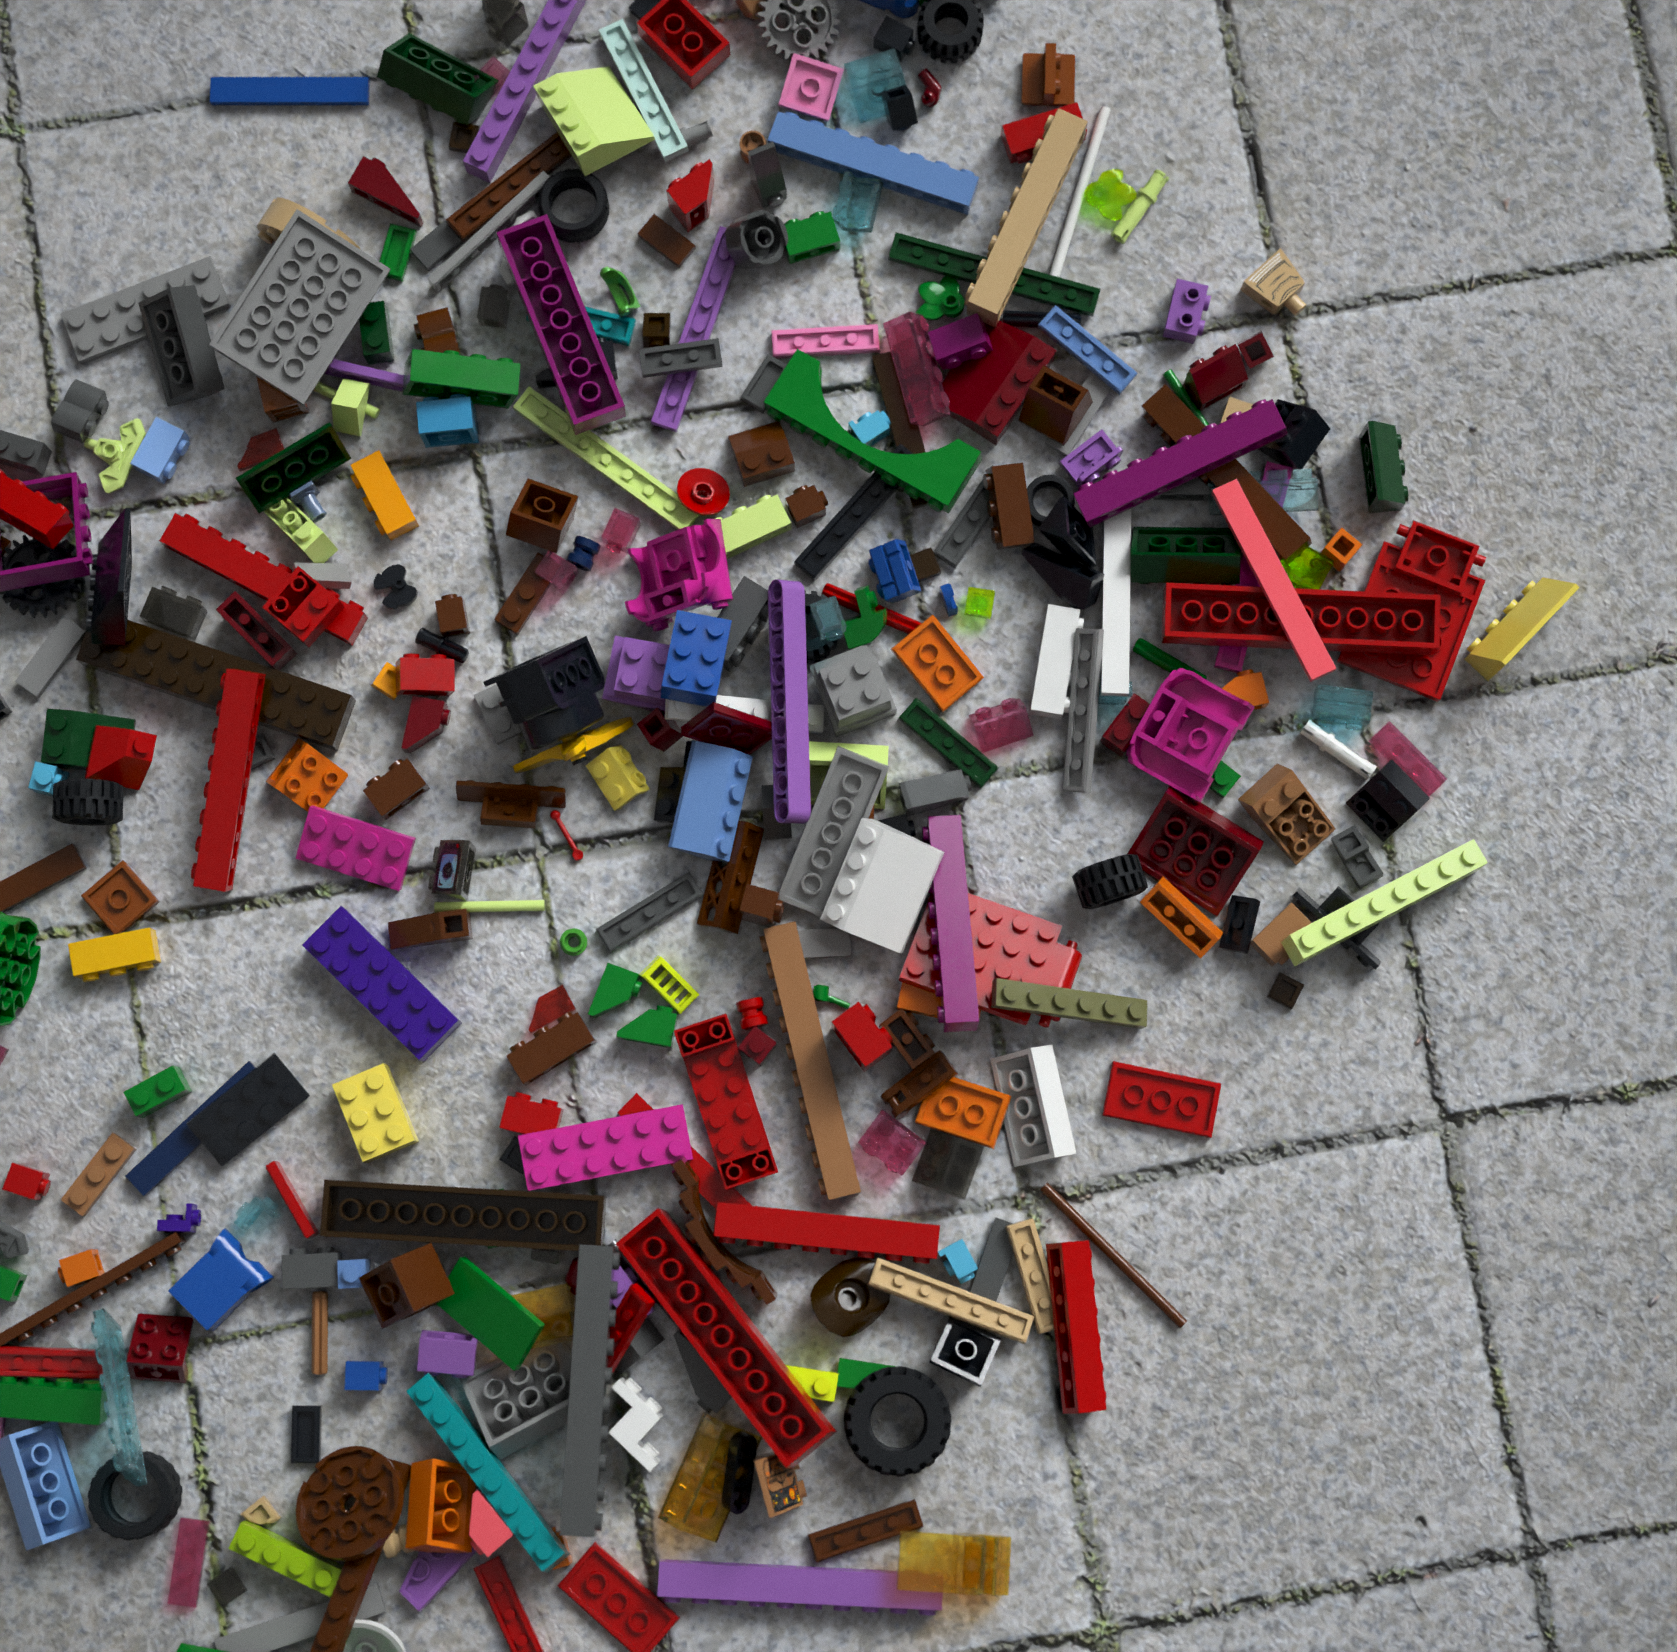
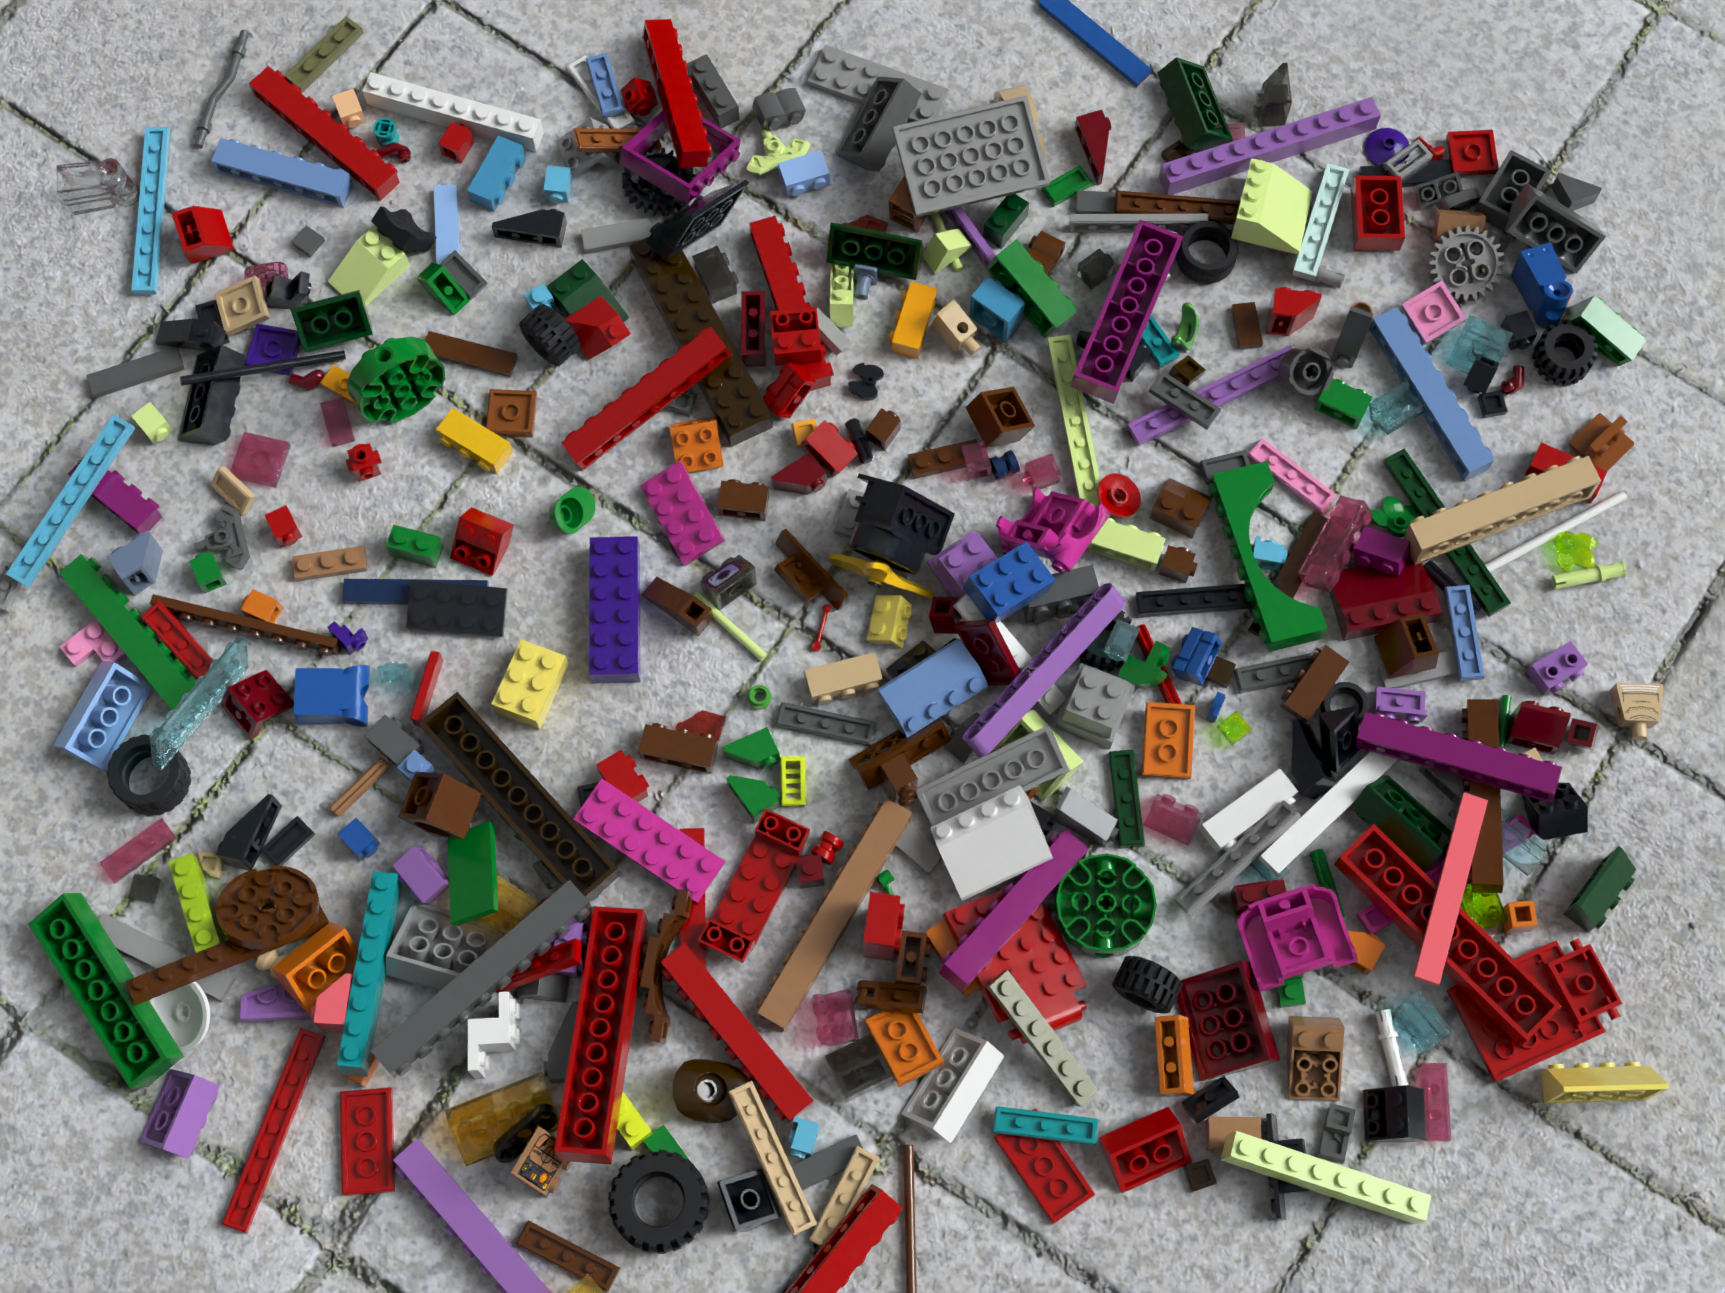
camera: 45 degrees right, 10 degrees down
(47, 1065) = (364, 462): none -> red brick
(209, 1032) = (481, 540): none -> red slope
(261, 934) = (572, 510): none -> green piece
(270, 1462) = (247, 837): none -> black slope
(341, 658) = (788, 390): none -> red brick
(420, 468) = (956, 328): none -> tan torso
(629, 861) = (843, 678): none -> tan brick
(930, 125) = (1492, 404): none -> black tile
(1016, 821) = (1126, 894): none -> green brick
(1134, 1068) = (1045, 1125): none -> teal tile
(1226, 1011) = (1145, 1149): none -> red slope

